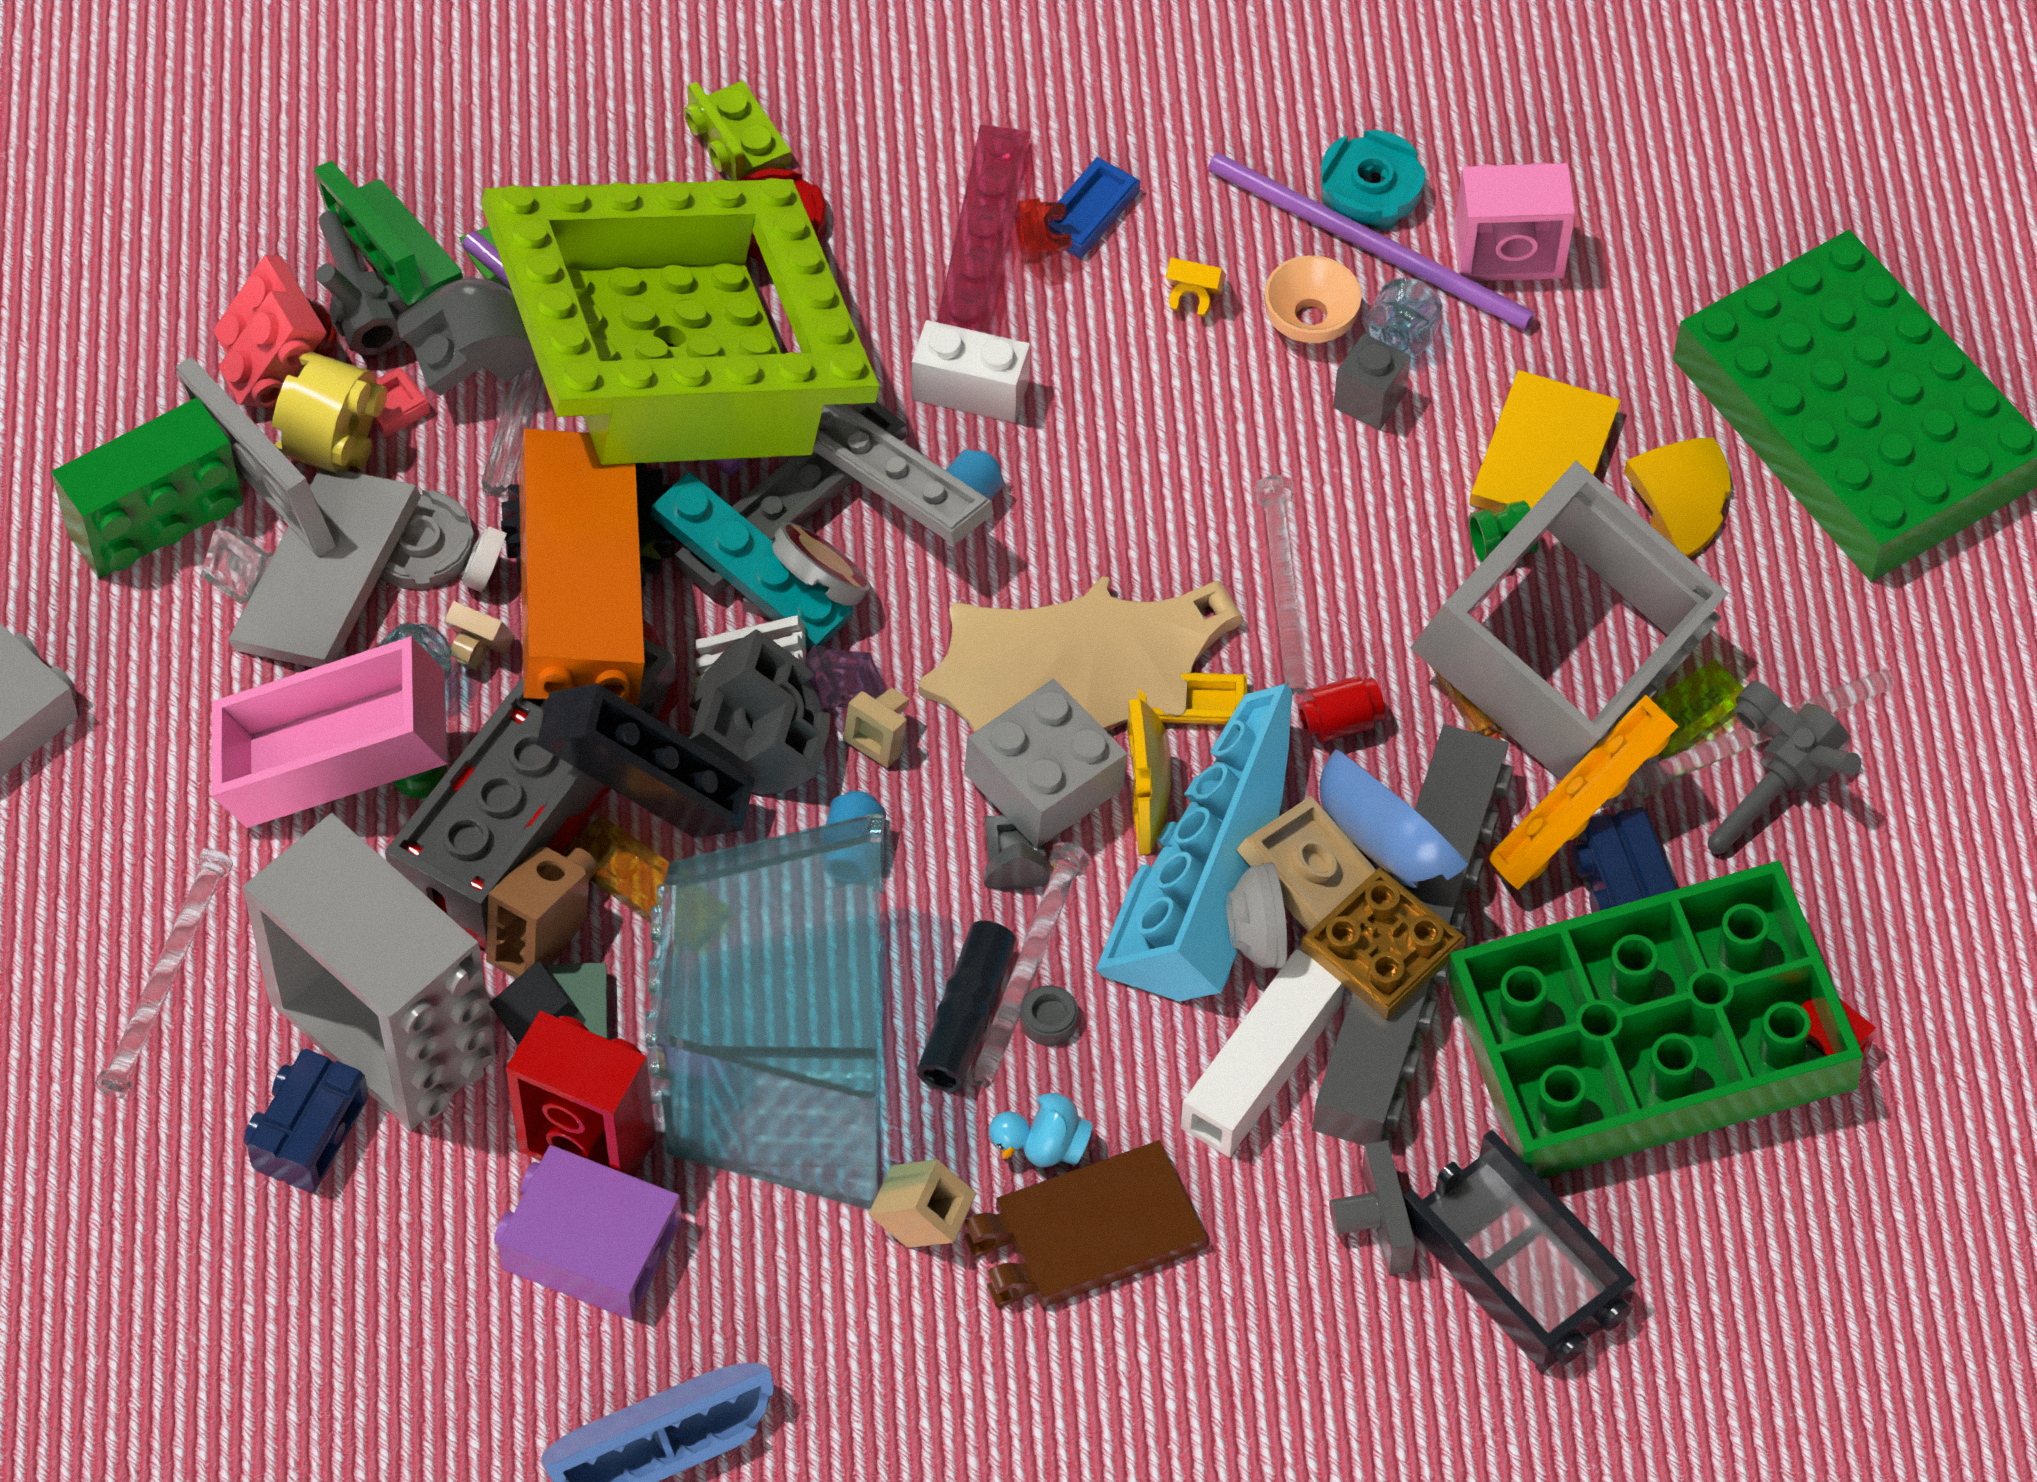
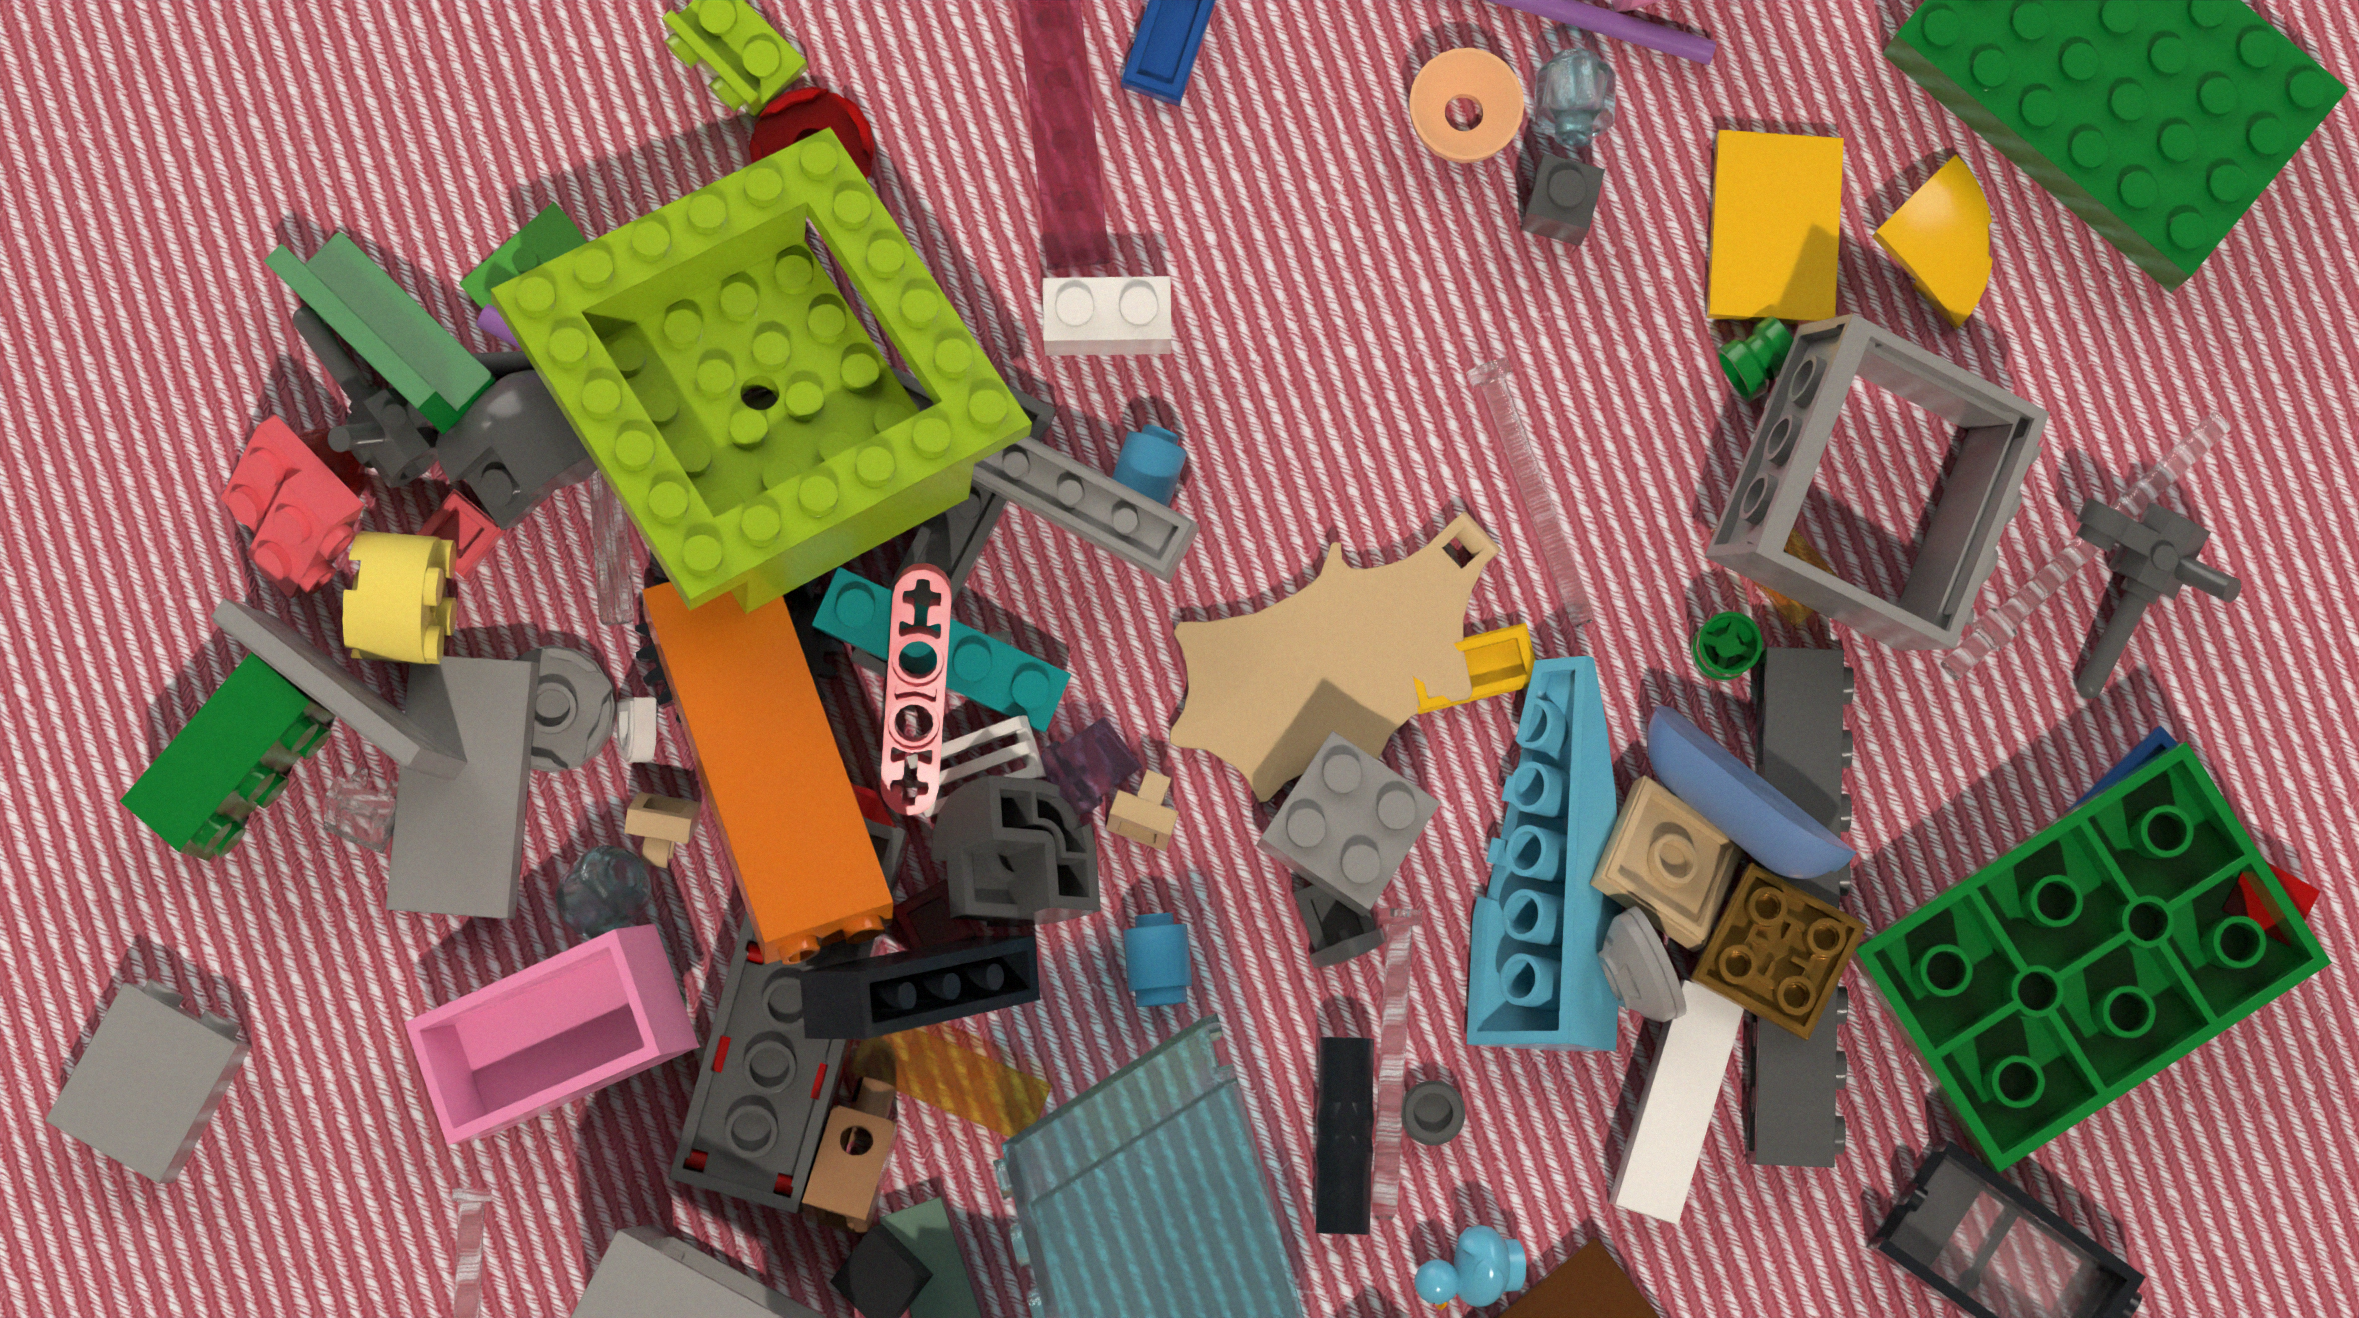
camera: 20 degrees left, 25 degrees up
(728, 573) = (911, 689): none -> coral beam
(818, 561) = (1019, 633): tile -> none
(1033, 233) = (1120, 99): clear red tile -> none
(1151, 773) = (1462, 794): yellow brick -> none
(1196, 279) = (1321, 110): yellow tile -> none
(1341, 708) = (1644, 643): red brick -> none
(1379, 1208) = (1848, 1255): dark grey tile -> none
(1410, 728) = (1732, 637): none -> green wheel
(1581, 793) = (1946, 702): light orange plate -> none
(1621, 859) = (2006, 767): dark blue brick -> none
(1699, 706) = (2042, 508): clear neon green tile -> none

